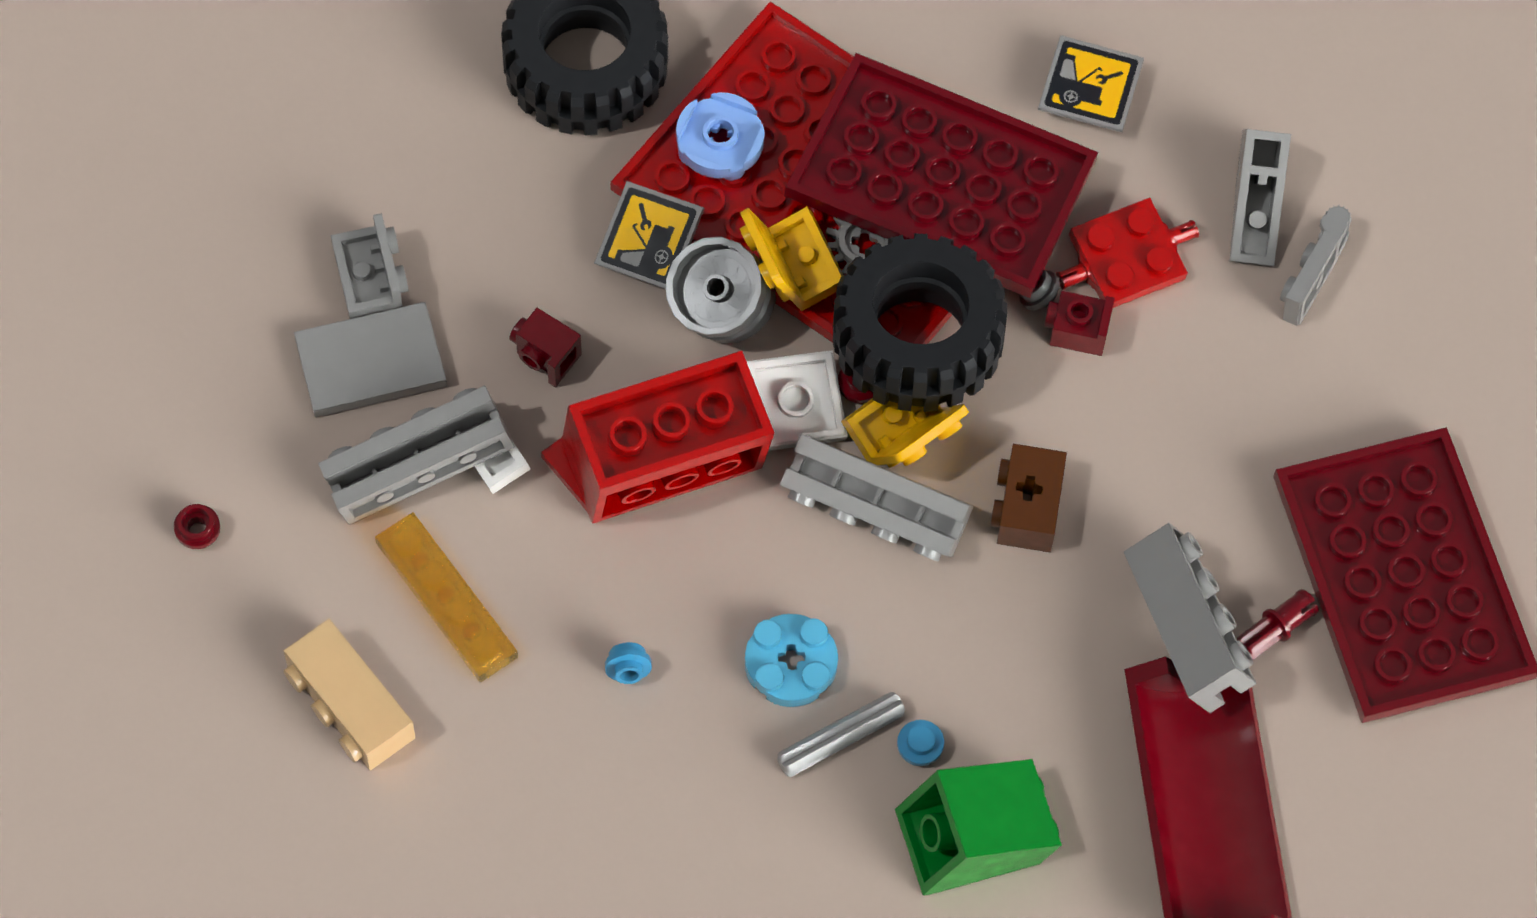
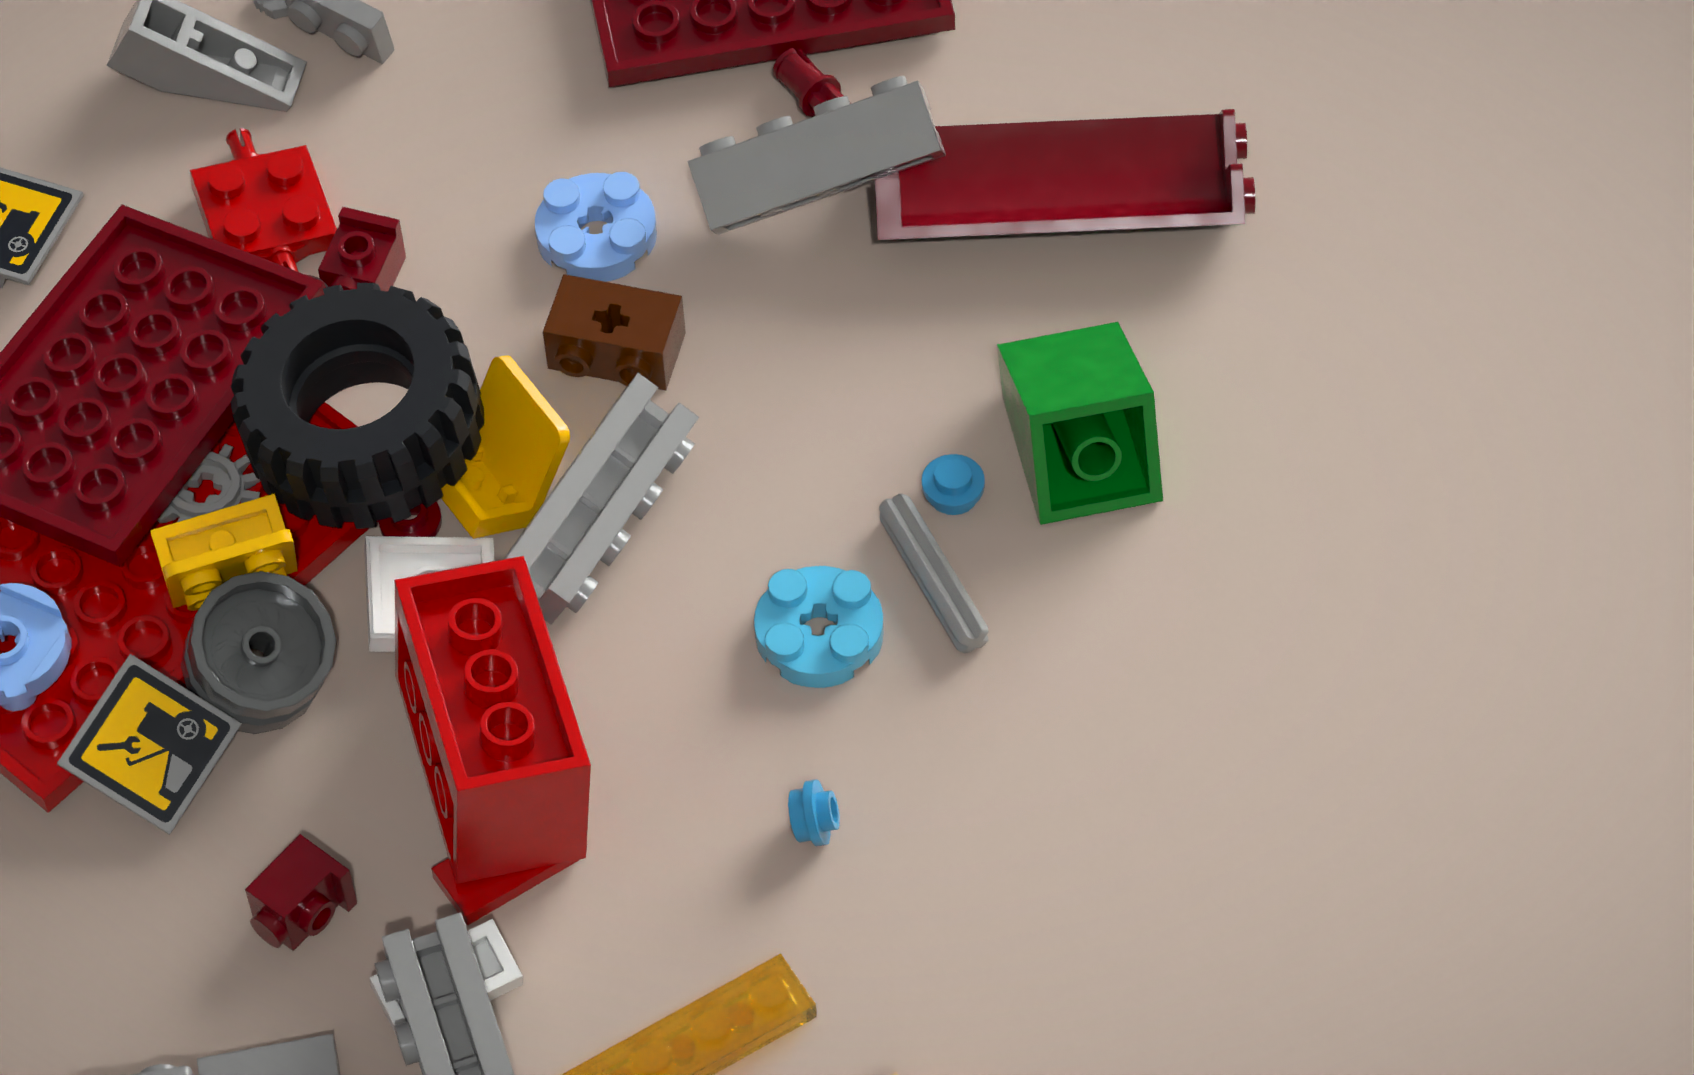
camera: 80 degrees left, 10 degrees down
(1123, 499) = (590, 198): none -> light blue plate

